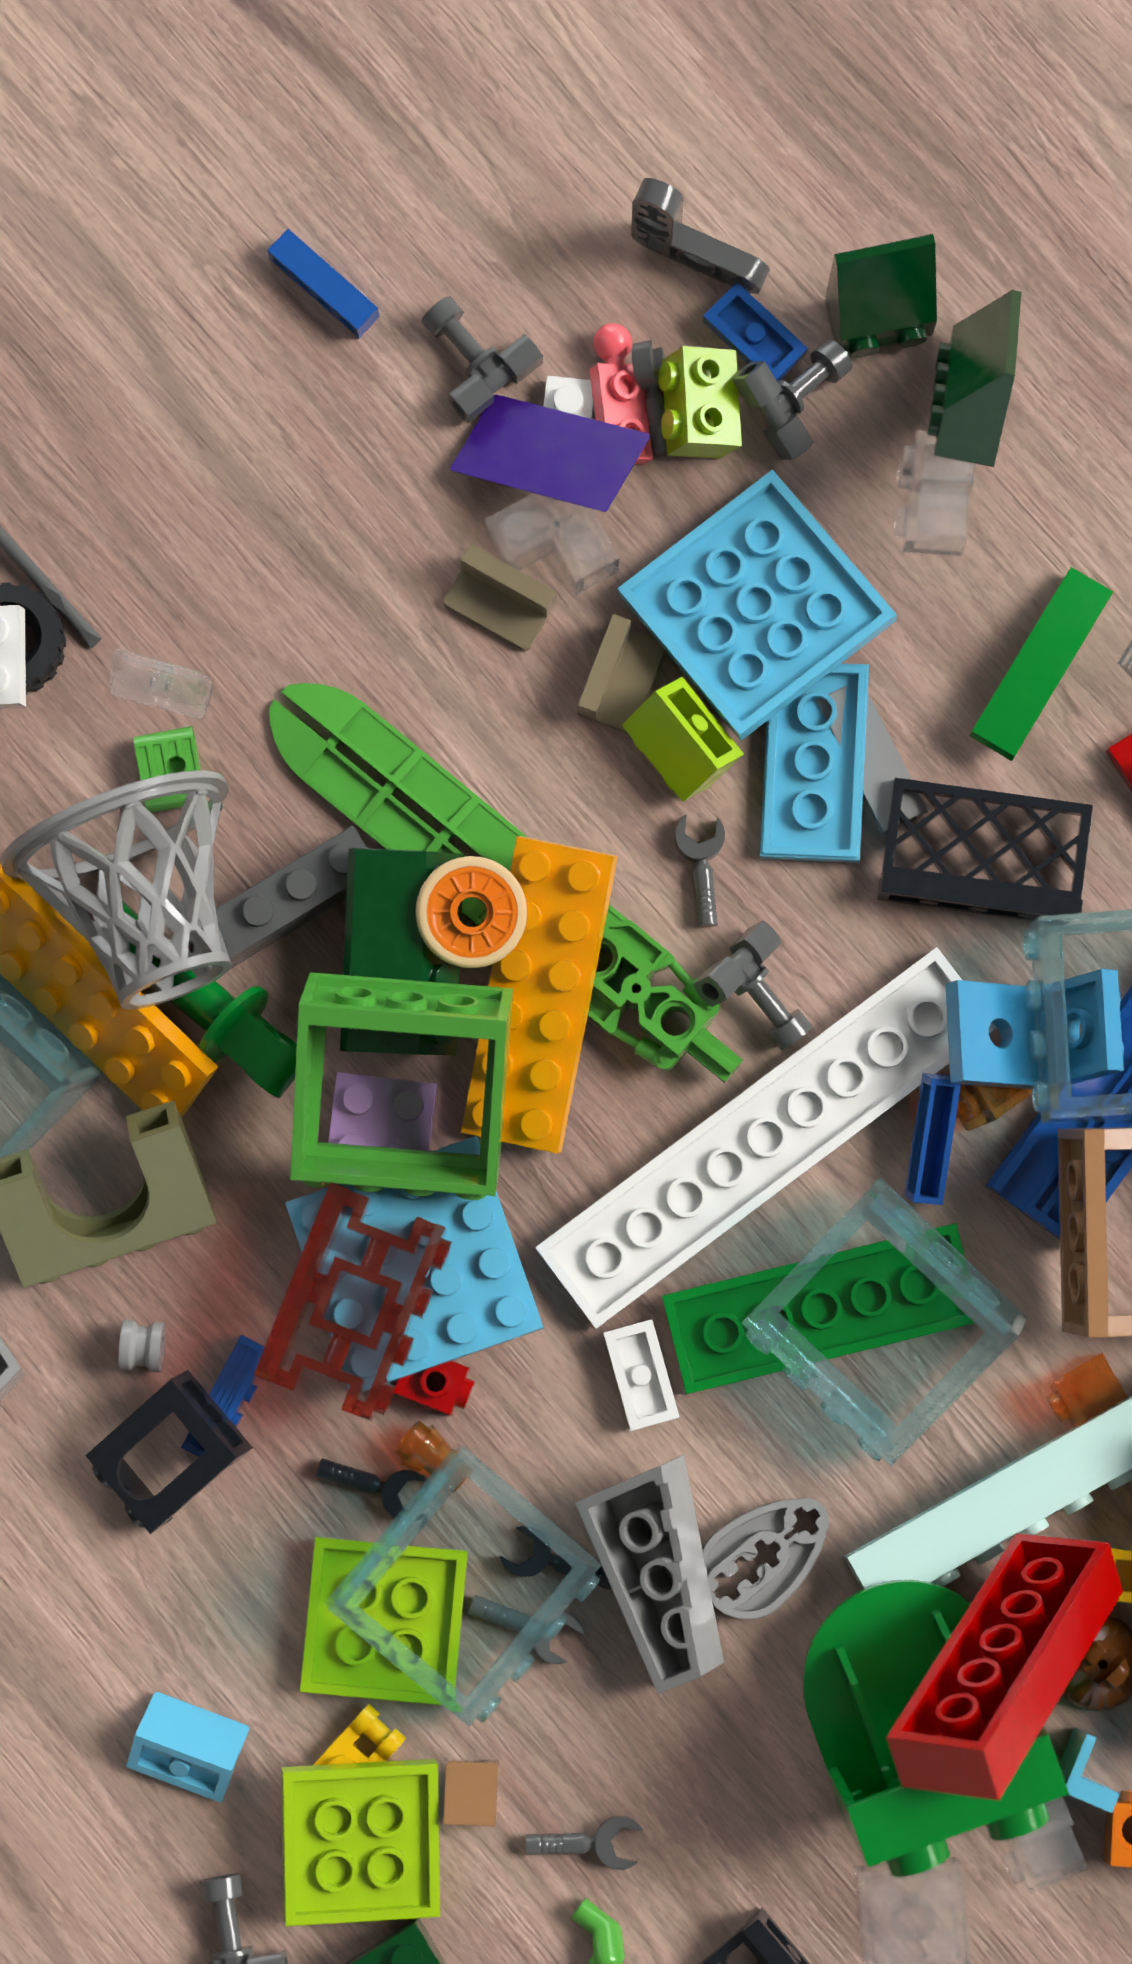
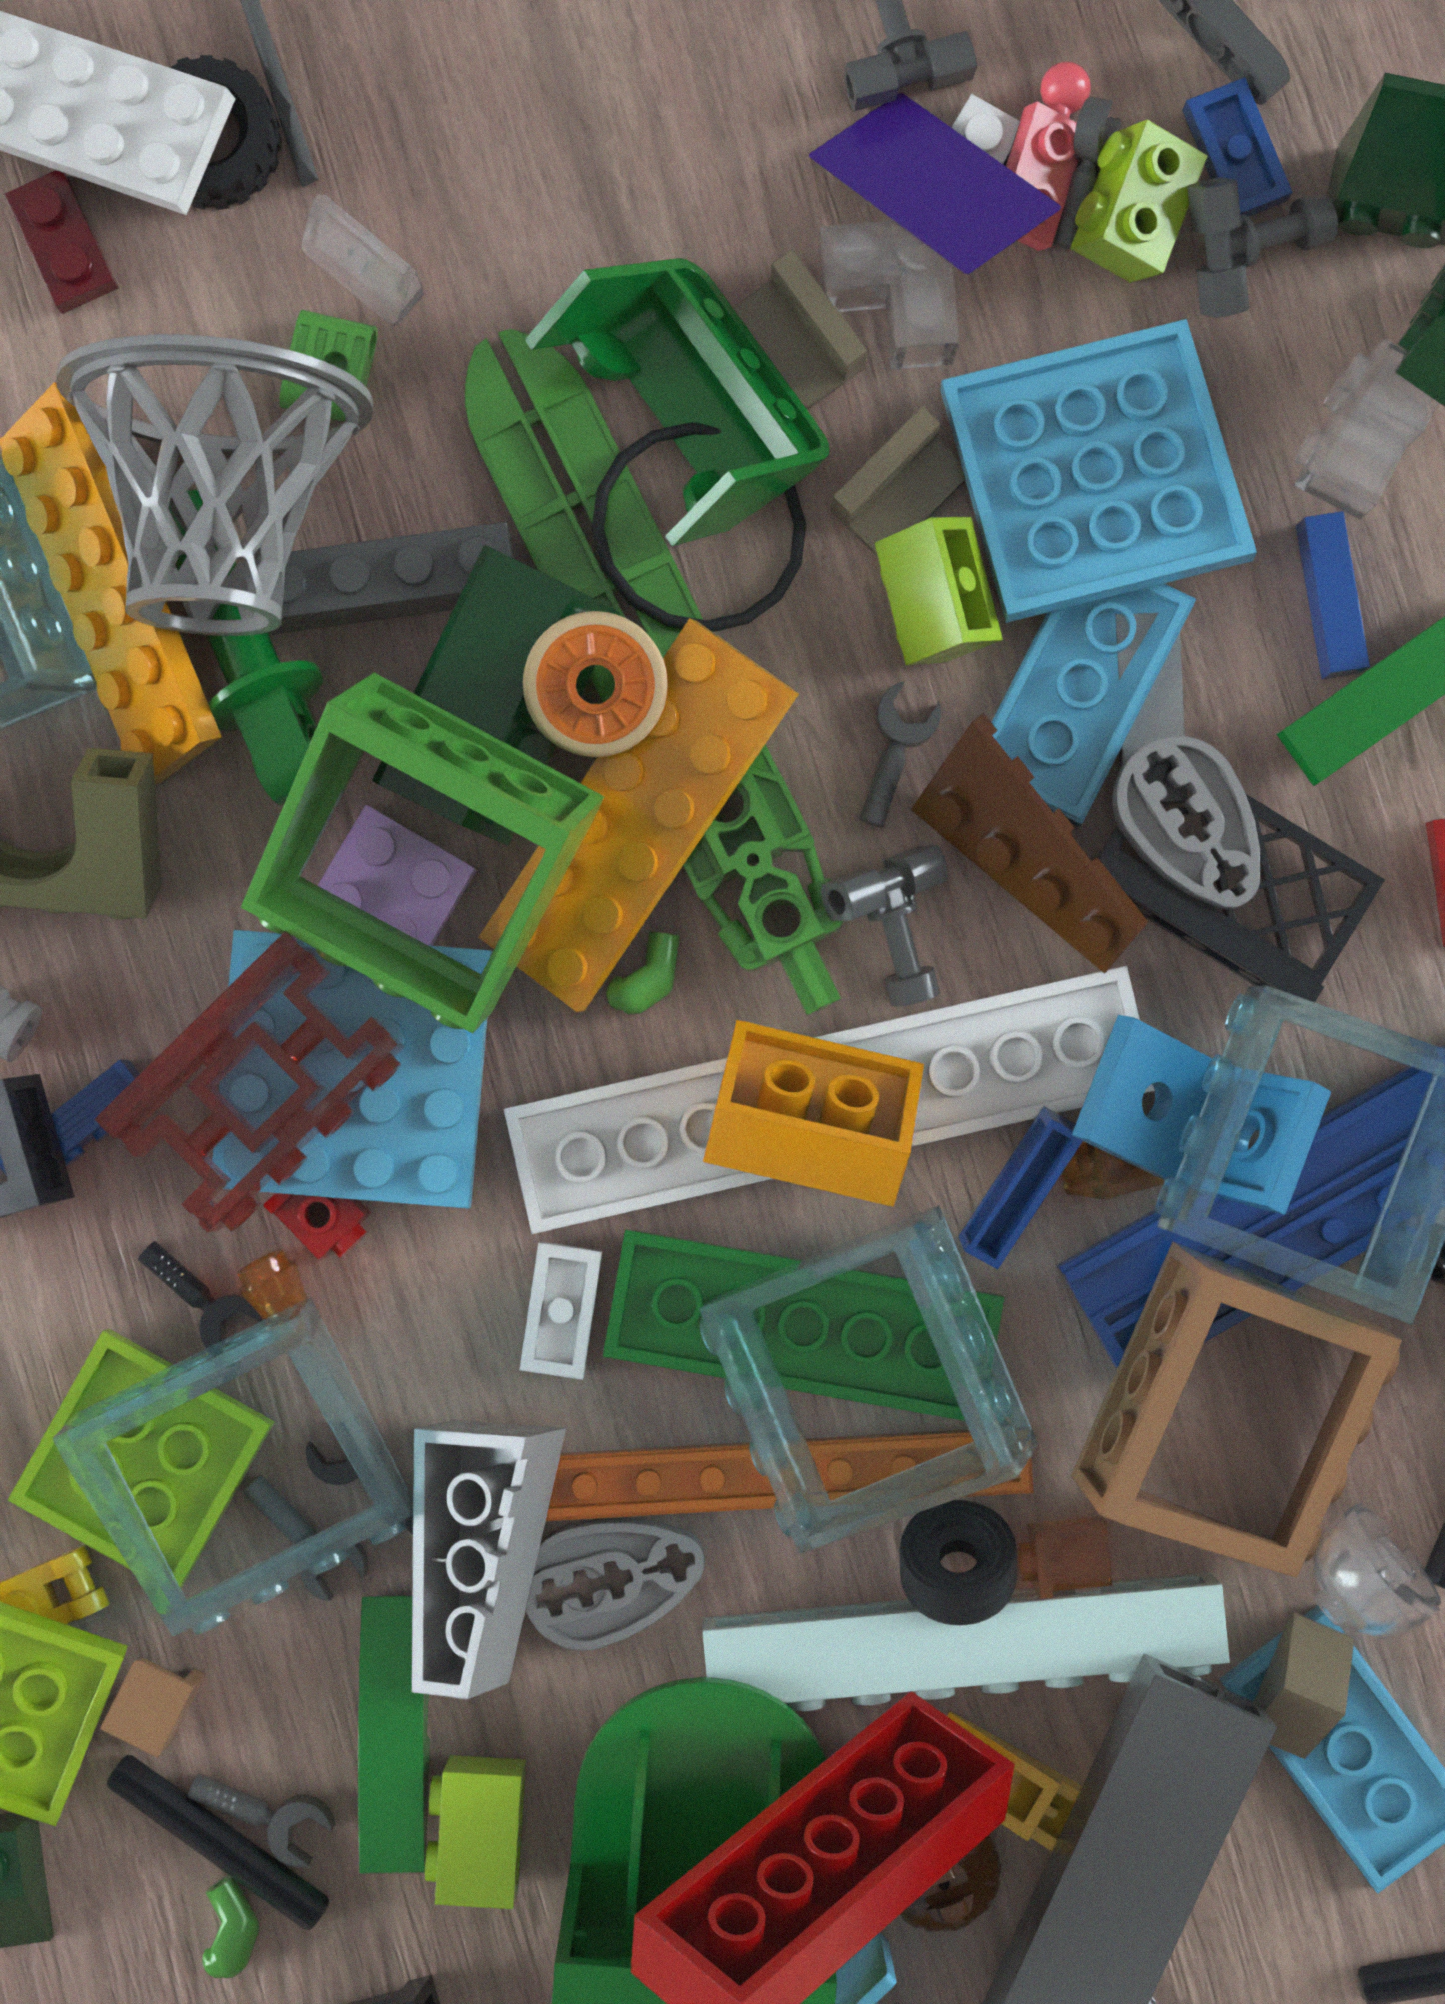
camera: 25 degrees right, 5 degrees up
(447, 664) = (697, 364): none -> green windscreen
(495, 694) = (645, 606): none -> black piece
(563, 1877) = (218, 1842): none -> black axle
(599, 1110) = (650, 982): none -> bright green arm
(657, 1740) = (391, 1743): none -> green slope
(750, 1777) = (478, 1831): none -> lime brick
(761, 1149) = (815, 1113): none -> light orange slope
(806, 887) = (1007, 830): none -> reddish brown wing
(823, 1442) = (727, 1480): none -> orange tile
(944, 797) = (1215, 793): none -> light grey piece
(965, 619) = (1332, 595): none -> blue piece
(1019, 1447) = (950, 1595): none -> black tyre

